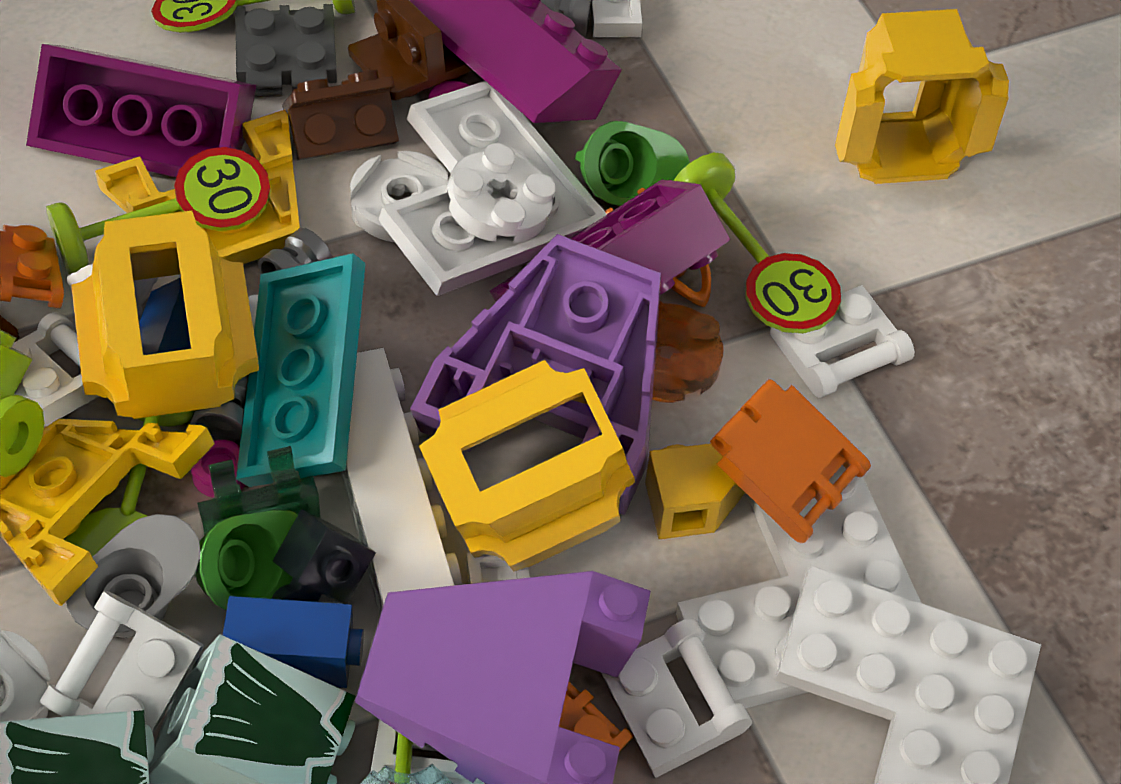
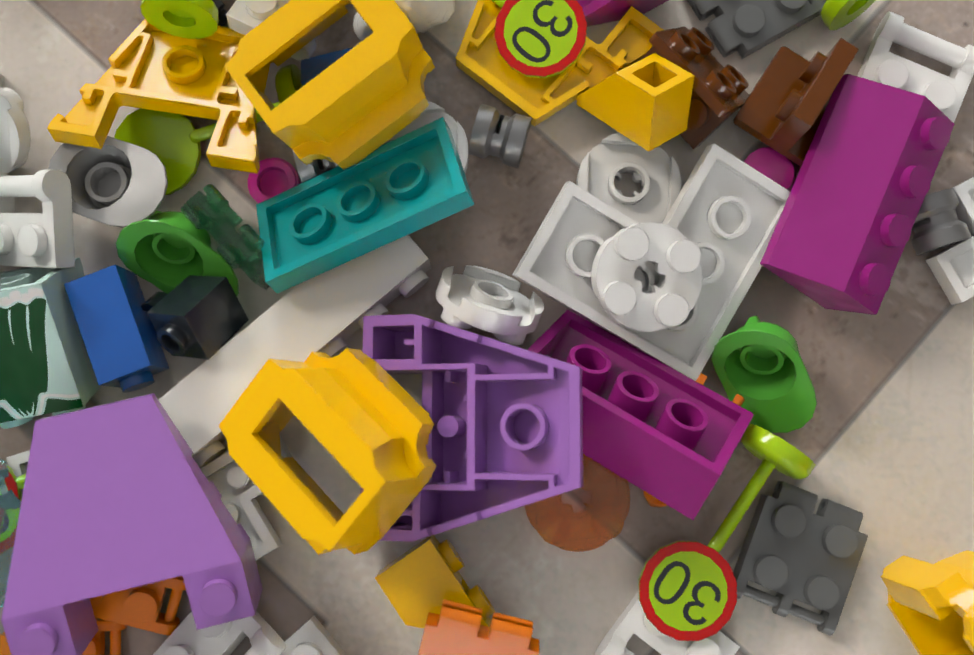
camera: 70 degrees right, 30 degrees up
(336, 139) = (643, 101): none -> yellow slope
(449, 324) = (488, 303): none -> white plate
(803, 213) = (801, 555): none -> dark grey plate

